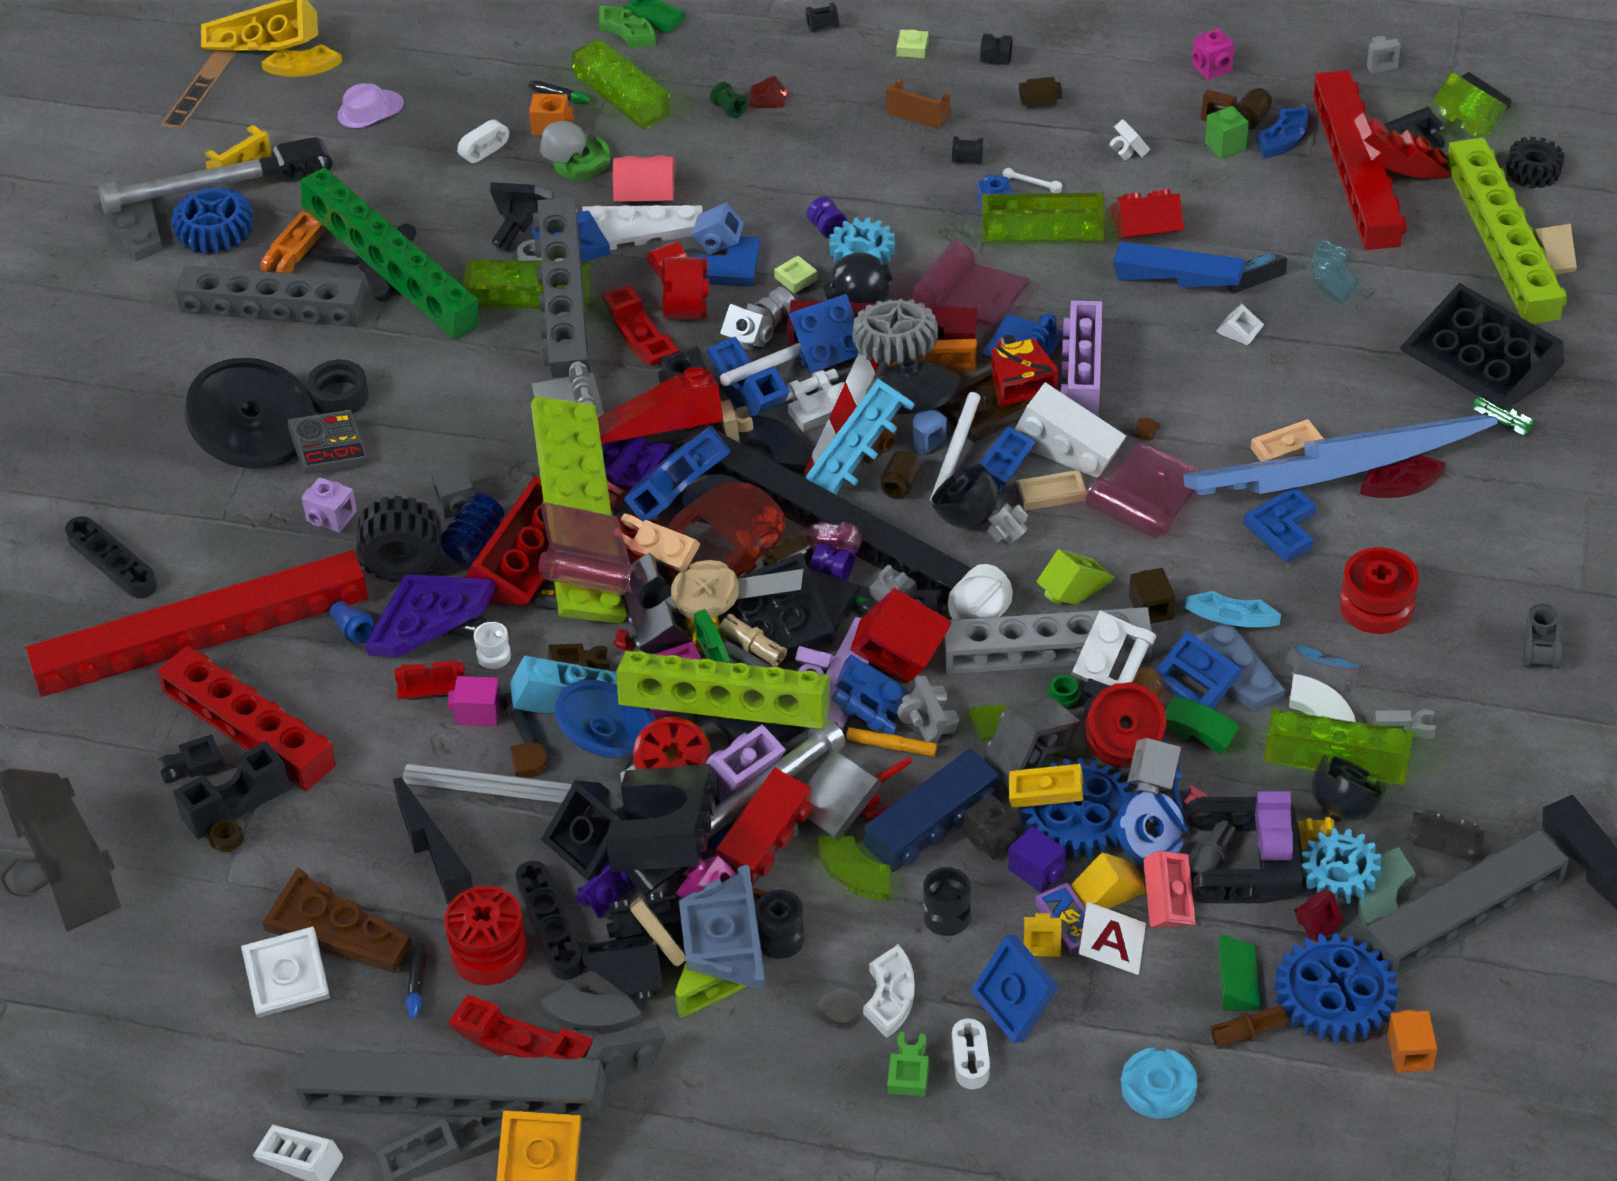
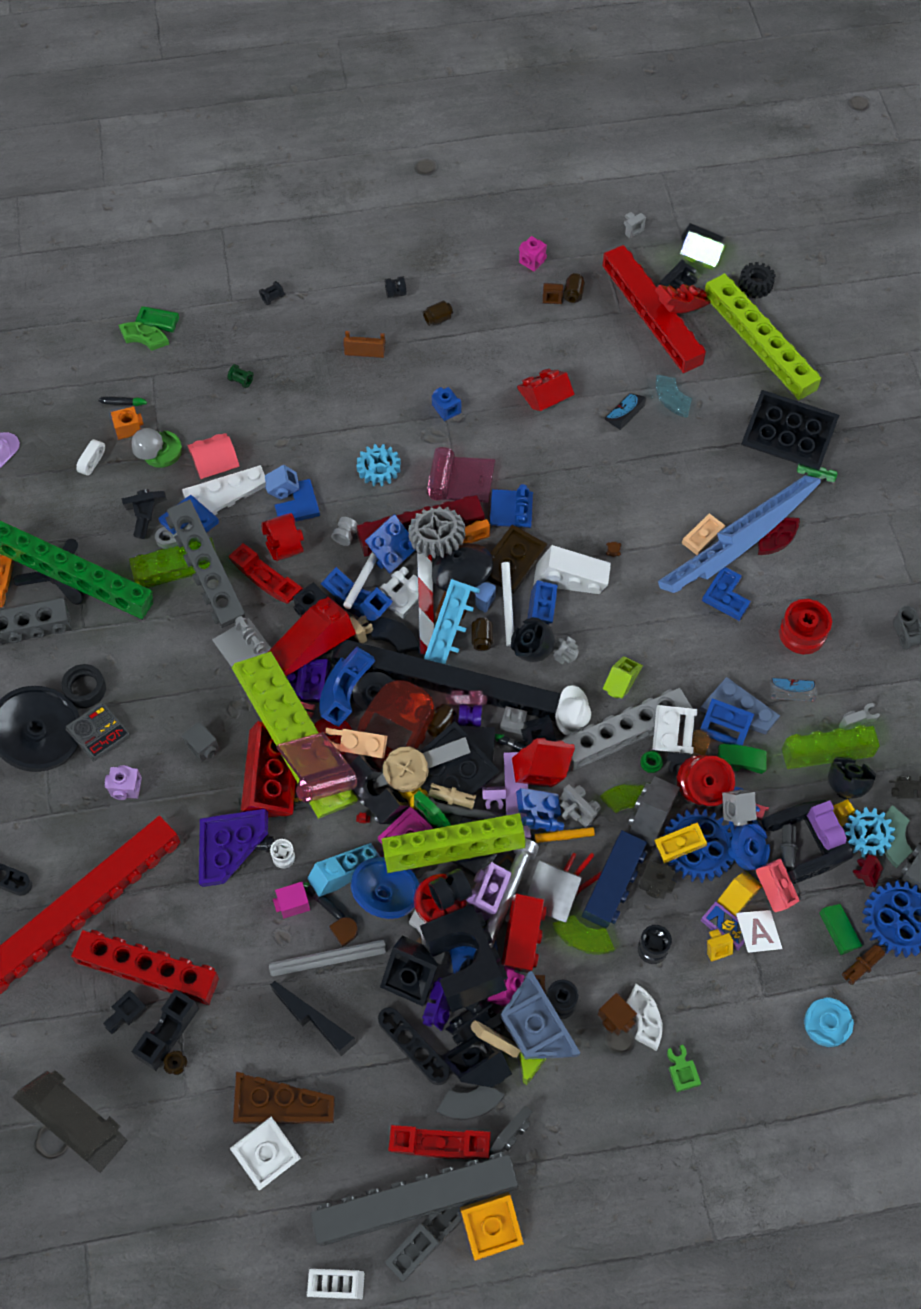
camera: 25 degrees left, 15 degrees up
(352, 622) = (183, 868): blue cone -> none
(398, 538) = (187, 798): black tyre -> none
(416, 980) = (356, 1139): black piece -> none
(421, 681) = (253, 893): red hinge -> none
(471, 528) = (227, 769): clear blue piece -> none
(486, 935) = (391, 1091): red wheel -> none
(577, 655) = (339, 844): dark brown plate -> none
(621, 83) = (163, 384): clear neon green brick -> none
(656, 256) = (257, 514): red brick -> none
(686, 733) = (450, 889): none -> black wheel
(748, 325) = (336, 552): light grey brick -> none
(768, 94) = (262, 363): clear red slope -> none
(796, 274) = (346, 500): yellowish green plate -> none
(825, 215) = (347, 451): dark purple wheel -> none
(849, 970) = (617, 1015): none -> reddish brown brick
(860, 278) = (391, 496): black brick -> none
(912, 43) = (338, 296): yellowish green plate -> none
(963, 1054) = (717, 1042): white beam -> none
(967, 150) = (412, 371): black bush -> none
(1014, 988) = (724, 994): blue tile -> none
(1020, 370) = (526, 535): torso -> none
(1037, 859) = (692, 892): dark purple brick -> none
(1043, 217) = (485, 411): clear neon green brick -> none
(1051, 490) = (577, 613): tan tile -> none
(1055, 186) = (477, 381): white hinge -> none
(1084, 354) = (557, 511): lavender brick -> none
(1130, 141) = (509, 333): white tile -> none
(1143, 491) = (634, 596): clear pink door -> none
(1153, 591) = (674, 673): dark brown brick -> none
(1190, 268) = (591, 422): blue slope -> none
(1226, 132) = (567, 311): bright green brick -> none
(1232, 611) = (725, 669): medium azure tile -> none
(1240, 325) = (635, 453): white slope -> none
(1285, 134) = (600, 299): blue tile -> none
(1318, 699) = (804, 717): white tile -> none
(1558, 247) = (797, 336): tan slope -> none

